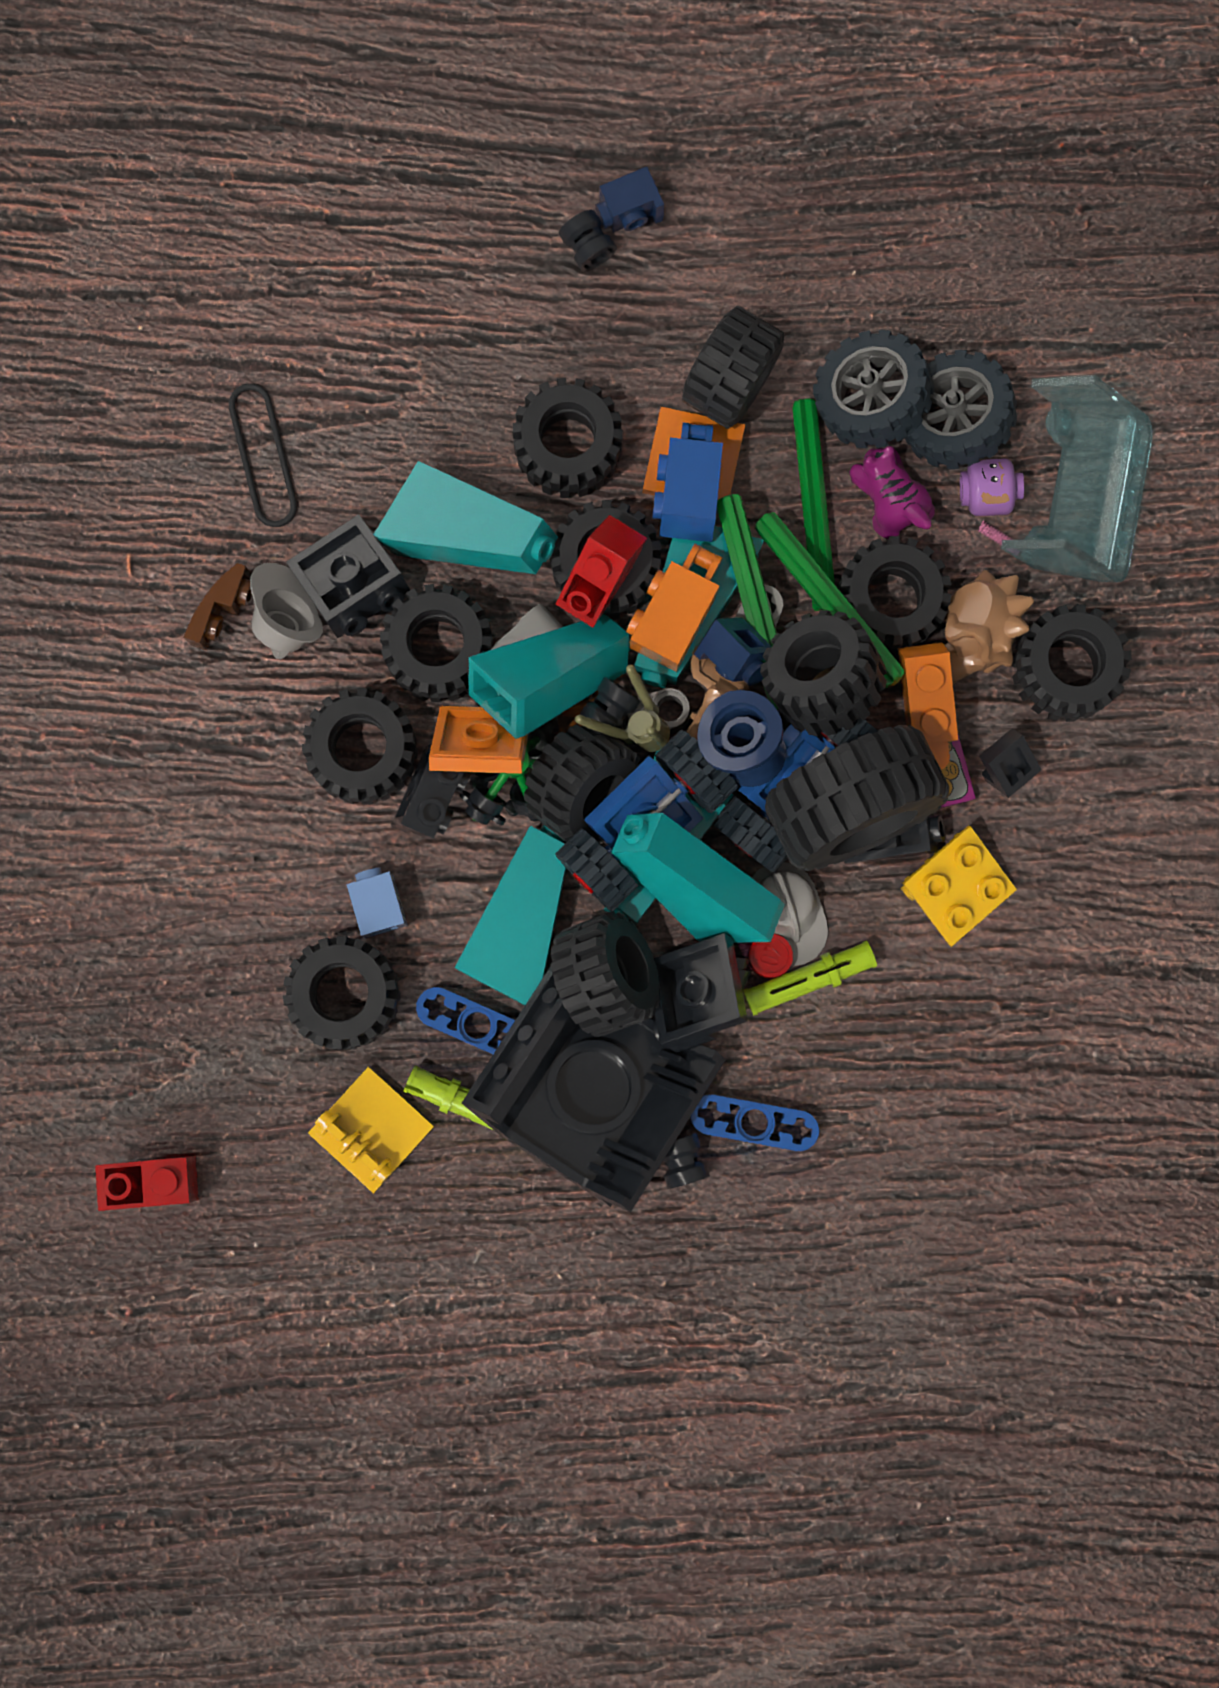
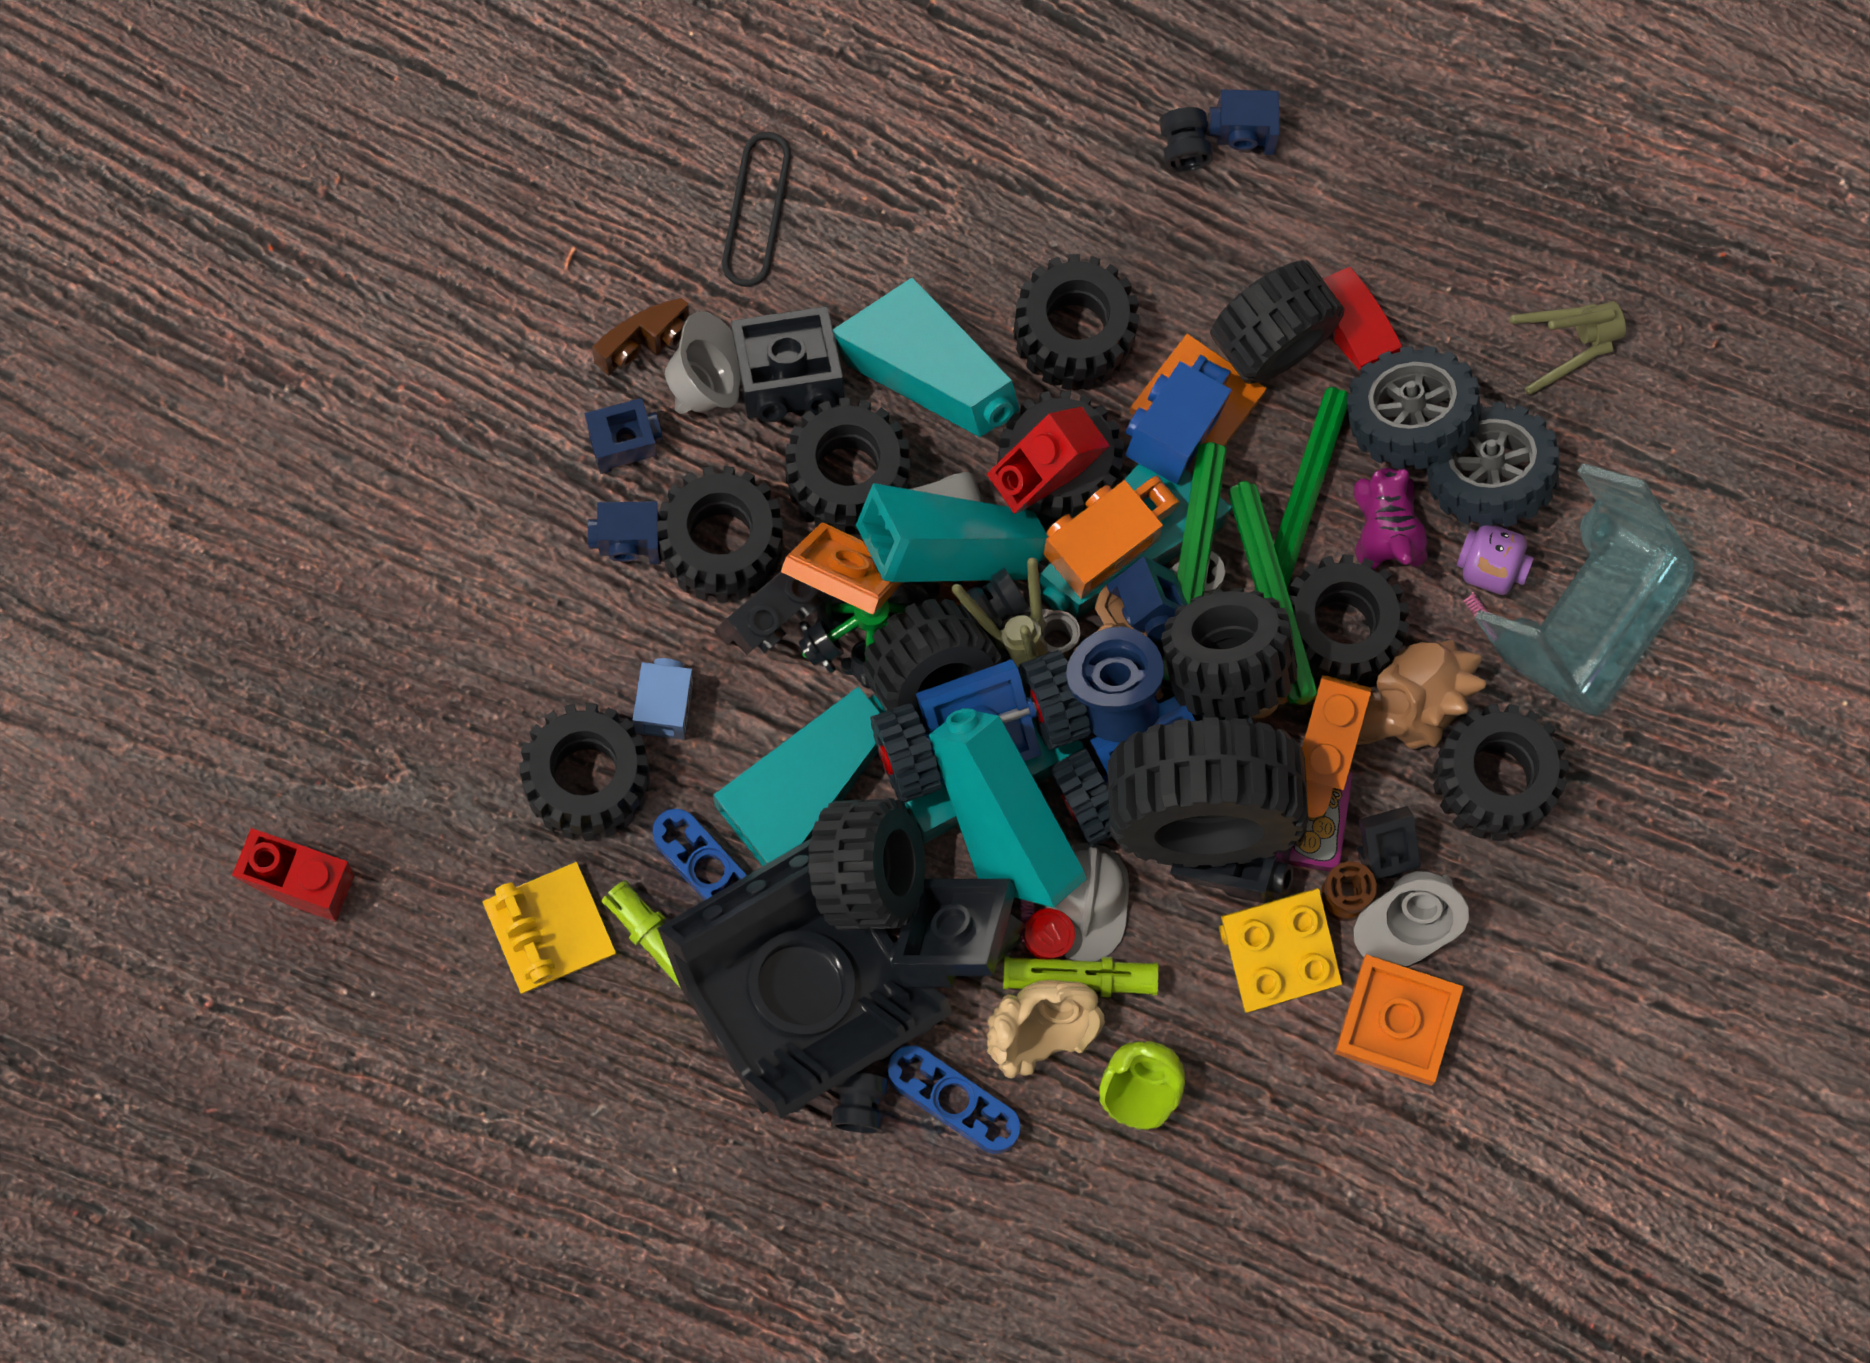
camera: 20 degrees right, 10 degrees down
(226, 697) = (611, 422): none -> dark blue brick
(281, 778) = (625, 531): none -> dark blue brick
(796, 1031) = (1040, 1022): none -> tan hair
(804, 338) = (1364, 327): none -> red slope
(899, 1046) = (1142, 1084): none -> lime hair
(985, 253) = (1593, 324): none -> olive plant
(985, 817) = (1340, 899): none -> reddish brown wheel
(1053, 815) = (1412, 919): none -> light grey piece
(1075, 900) = (1398, 1020): none -> orange plate

